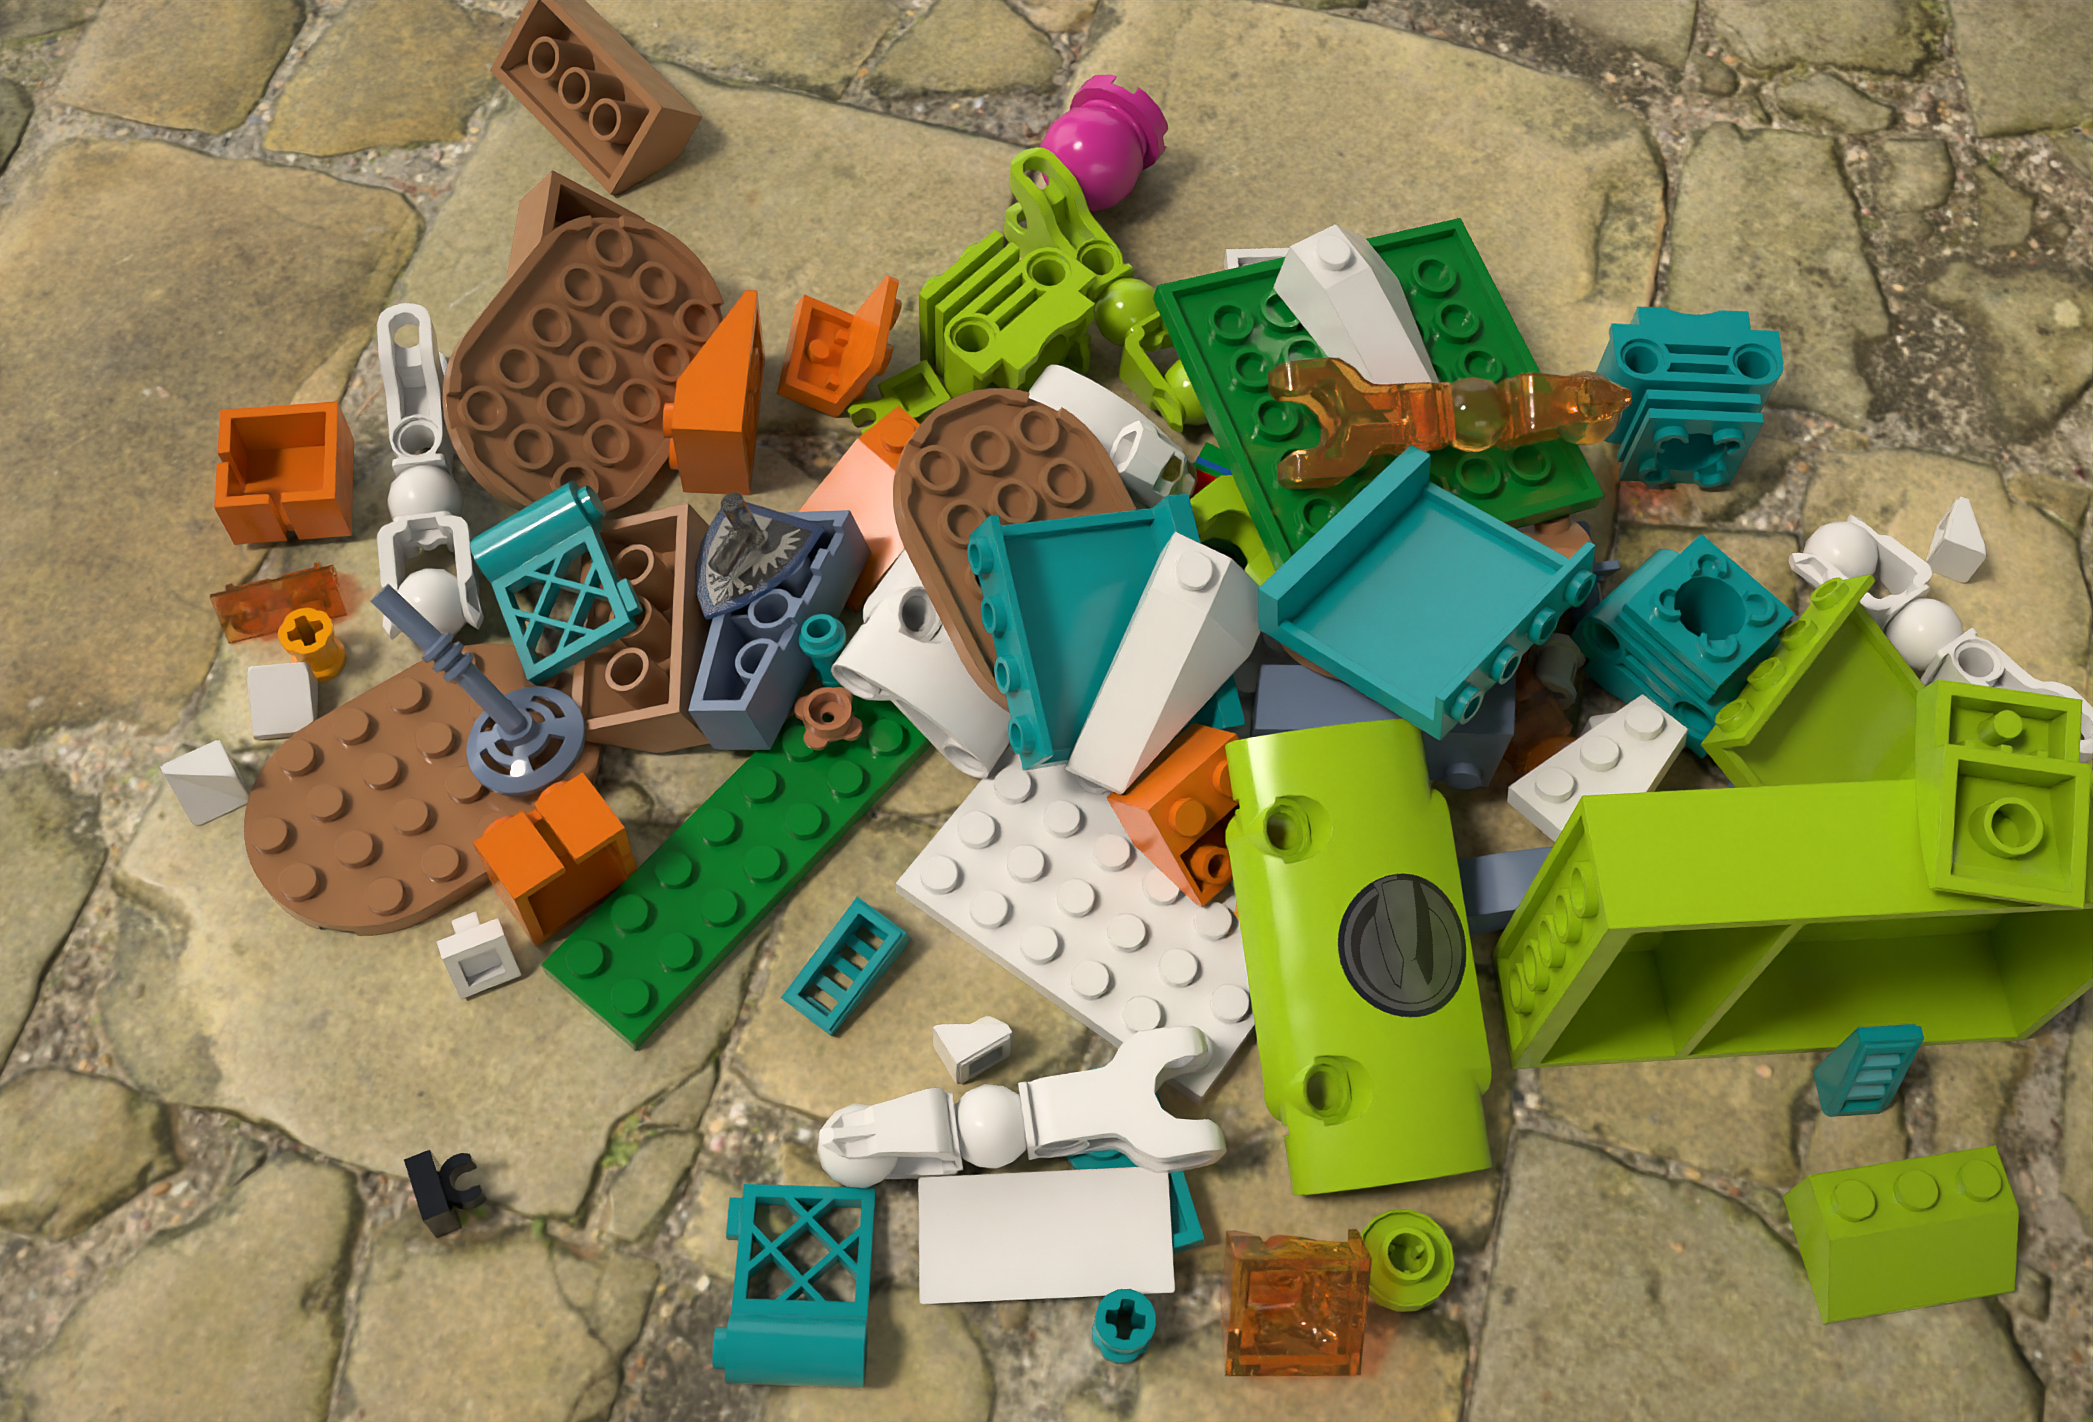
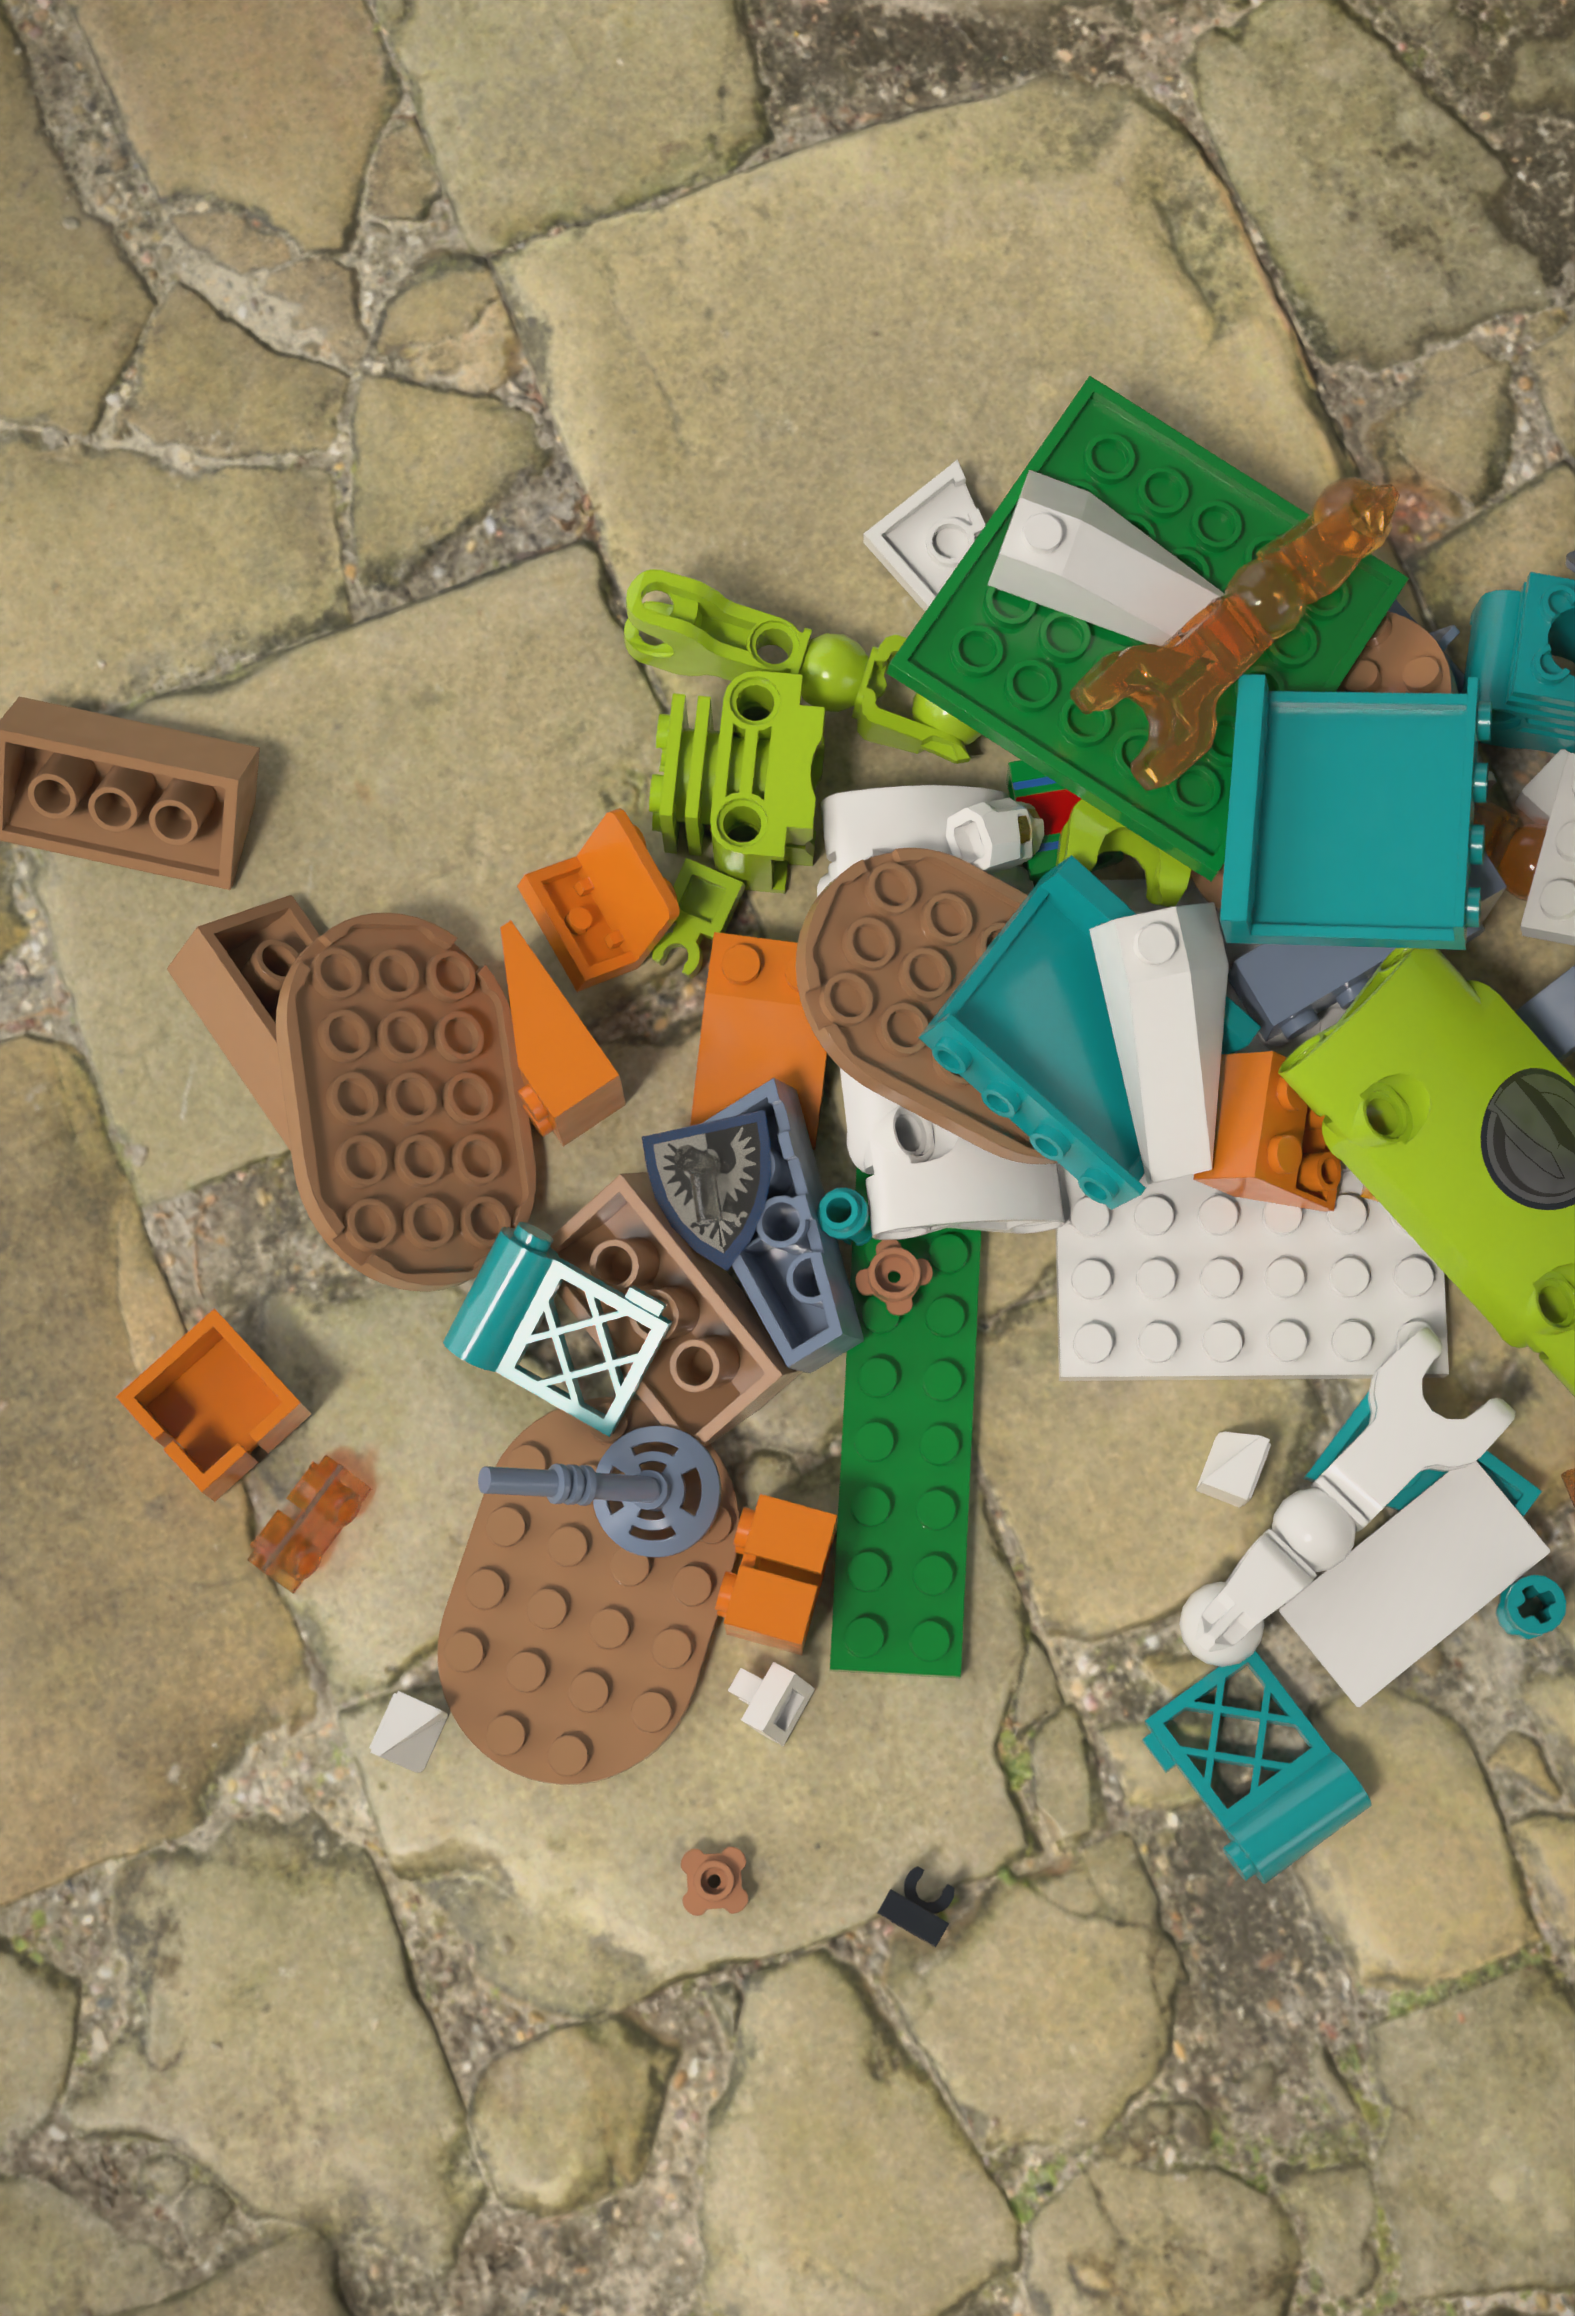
camera: 30 degrees left, 15 degrees up
(281, 699) = (399, 1611): white slope -> none
(311, 639) = (378, 1523): light orange bush -> none
(324, 1072) = (728, 1894): none -> nougat plate
(424, 495) = (358, 1332): white piece -> none
(843, 934) = (1101, 1452): teal slope -> none
(1107, 140) = (670, 506): dark pink tile -> none
(1692, 392) = (1392, 398): teal piece -> none

